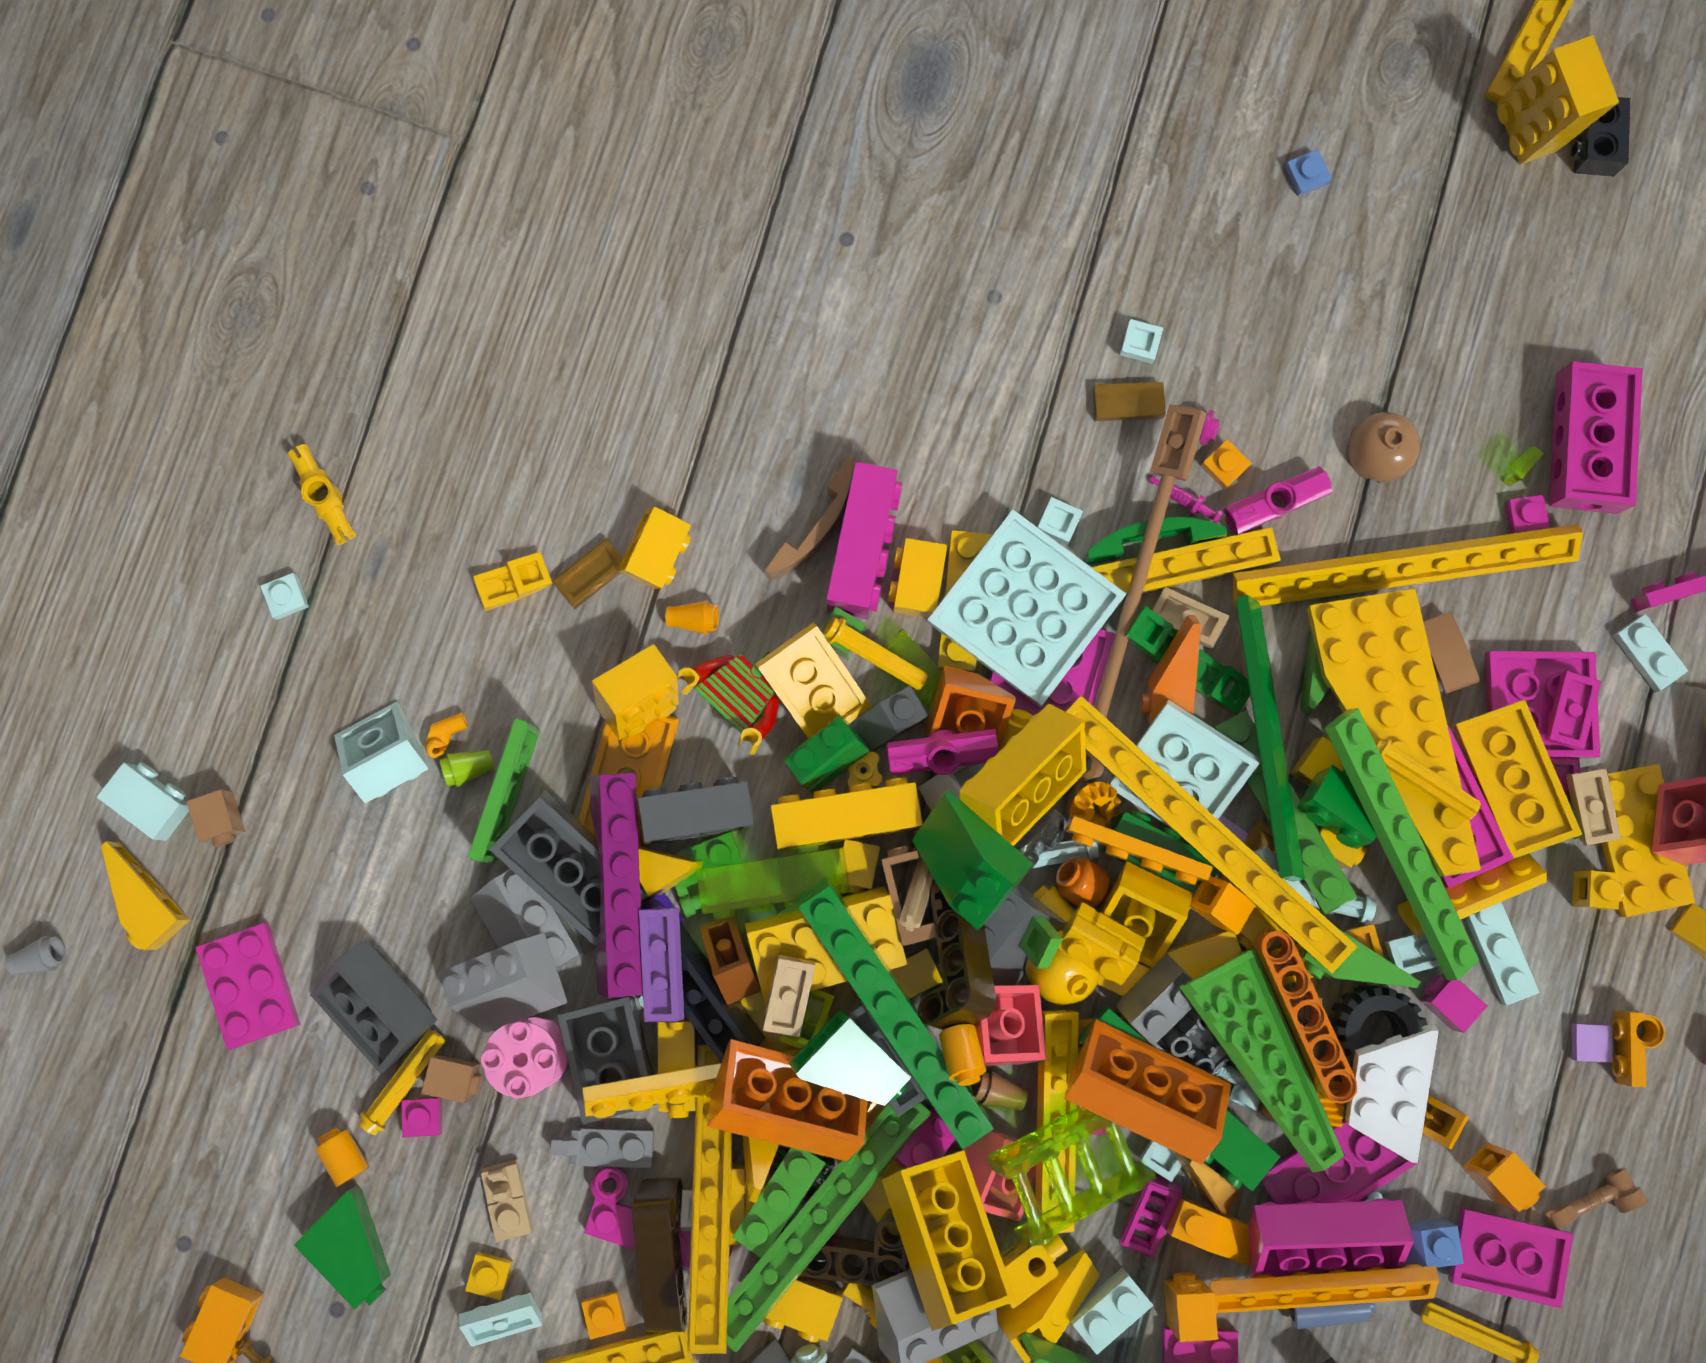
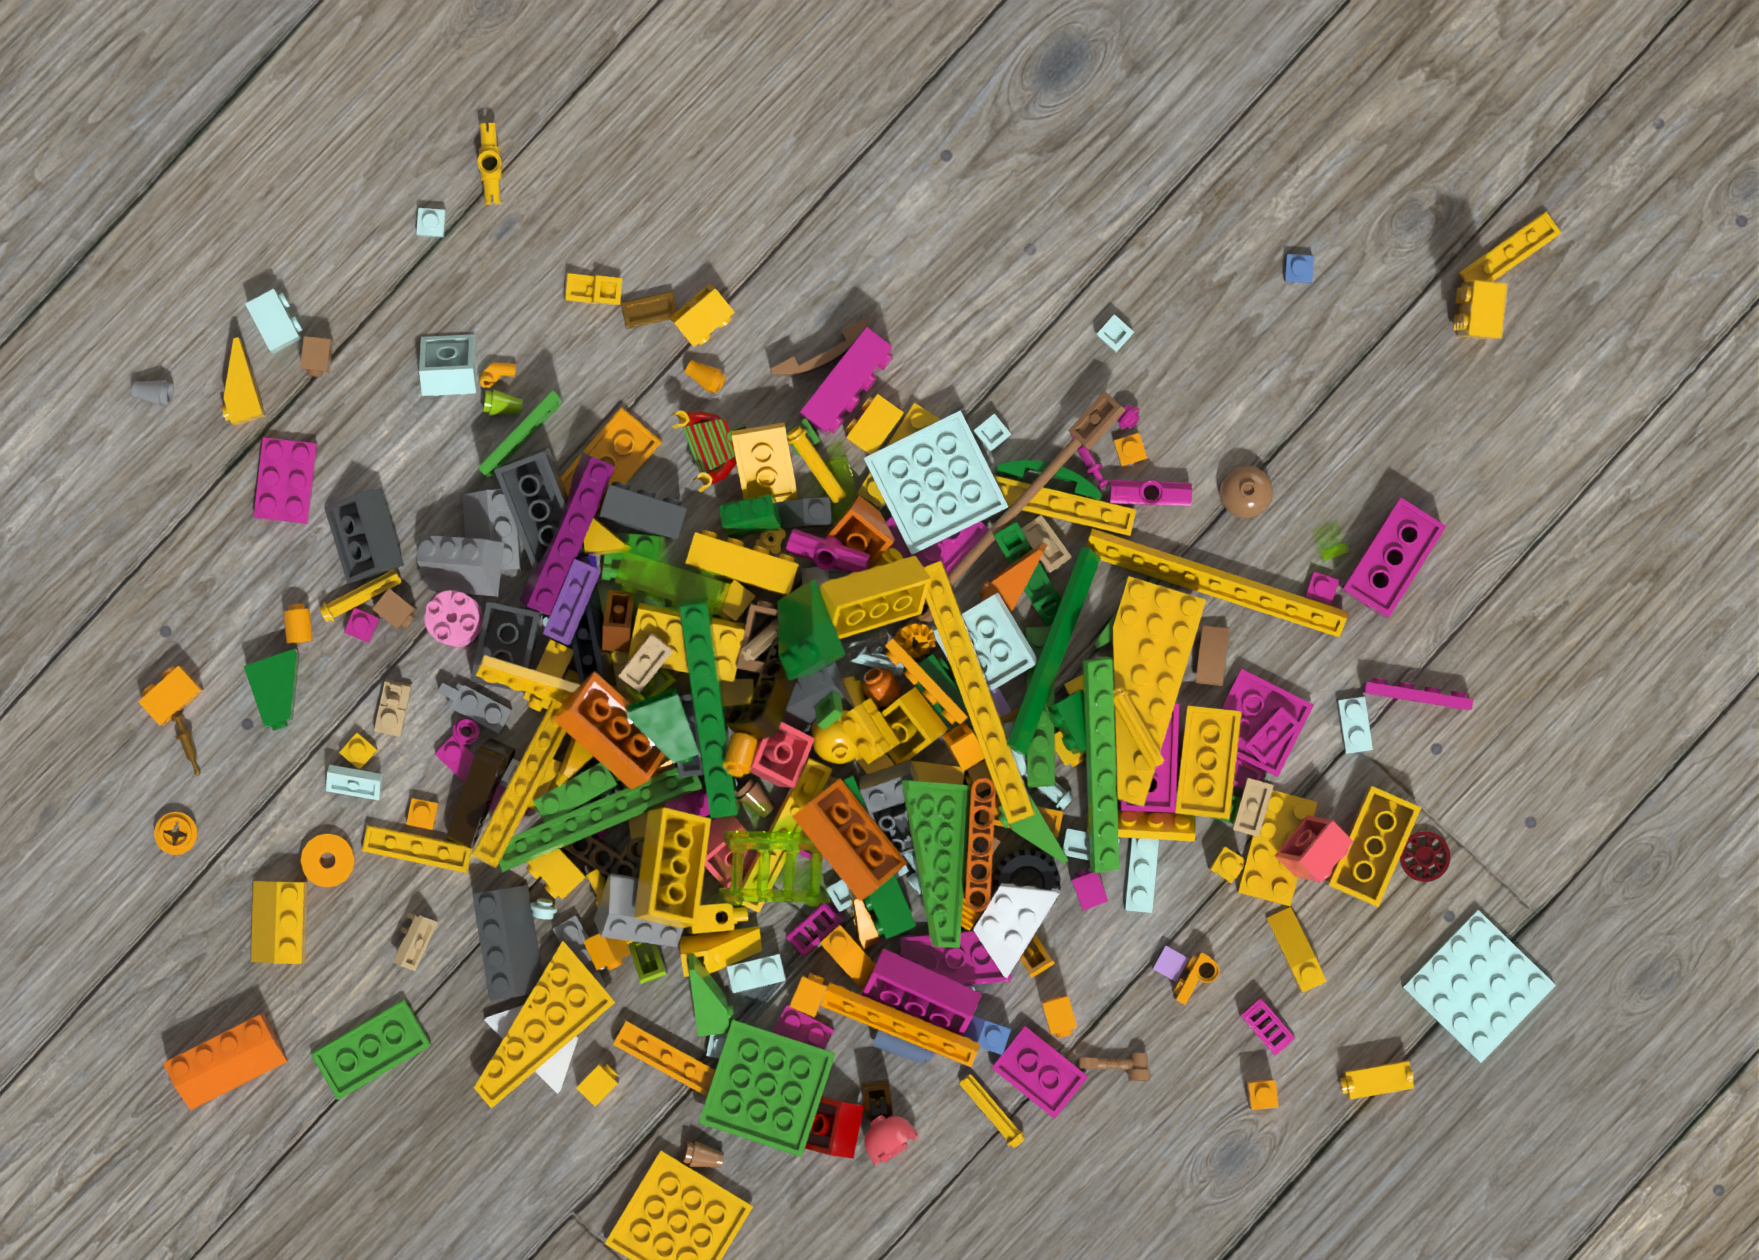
camera: 25 degrees right, 5 degrees up
(636, 692) = (641, 412): yellow brick -> none
(1129, 401) = (1085, 371): pearl gold tile -> none
(1609, 138) = (1525, 348): black brick -> none

